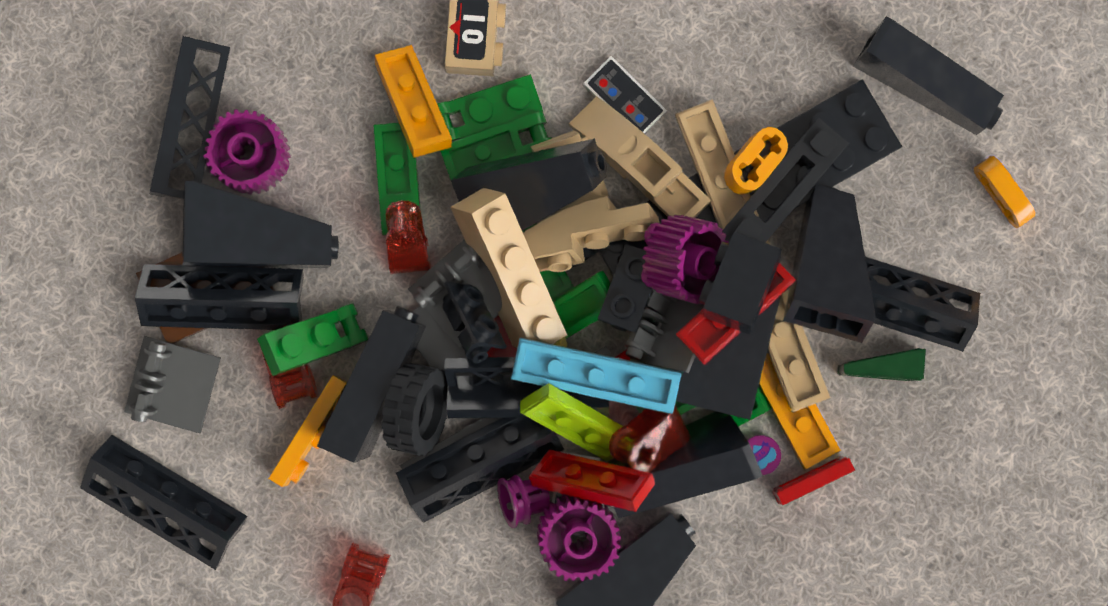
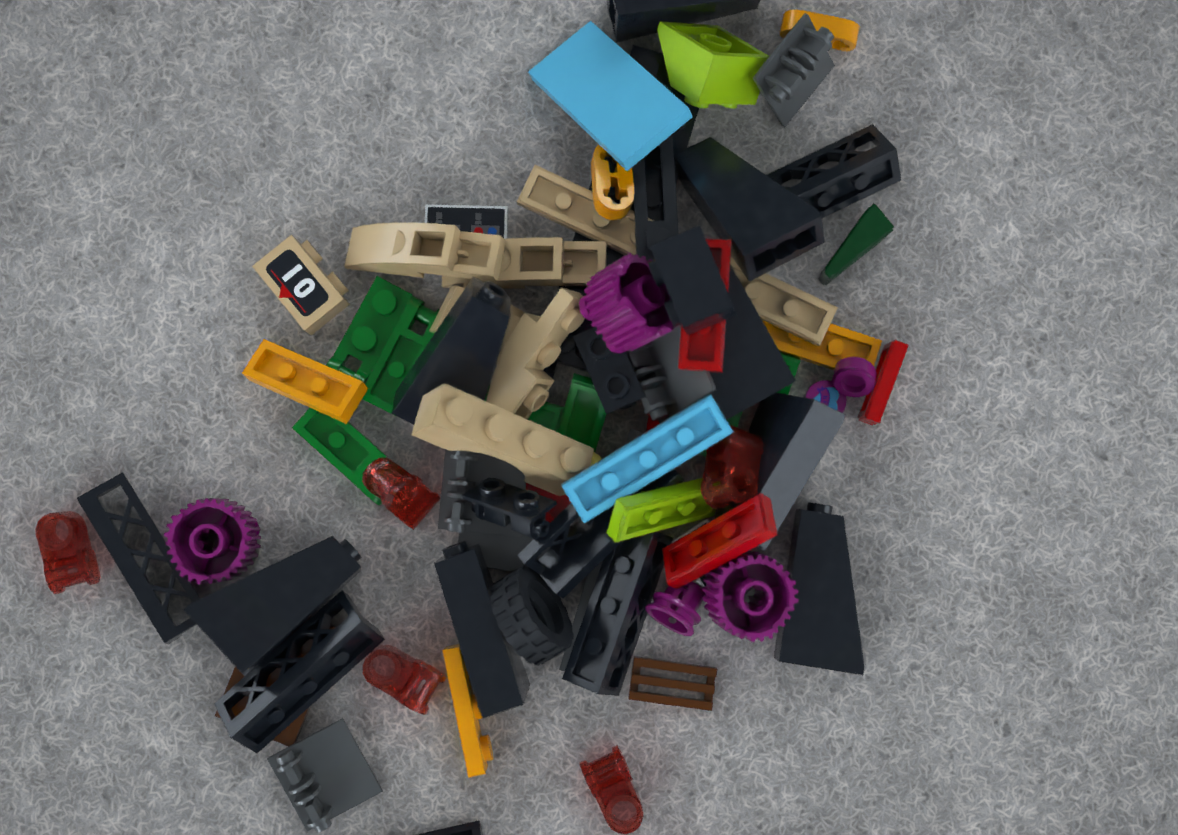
camera: 45 degrees left, 0 degrees up
(139, 68) = (71, 553): none -> clear red piece
(311, 339) = (400, 639): green plate -> none
(454, 557) = (707, 688): none -> reddish brown tile
(580, 87) = (424, 248): none -> tan slope
(796, 457) = (854, 377): none -> magenta tile
(810, 100) = (610, 95): none -> medium azure tile
(903, 145) = (710, 64): none -> lime slope
(959, 203) = (795, 69): none -> dark grey hinge

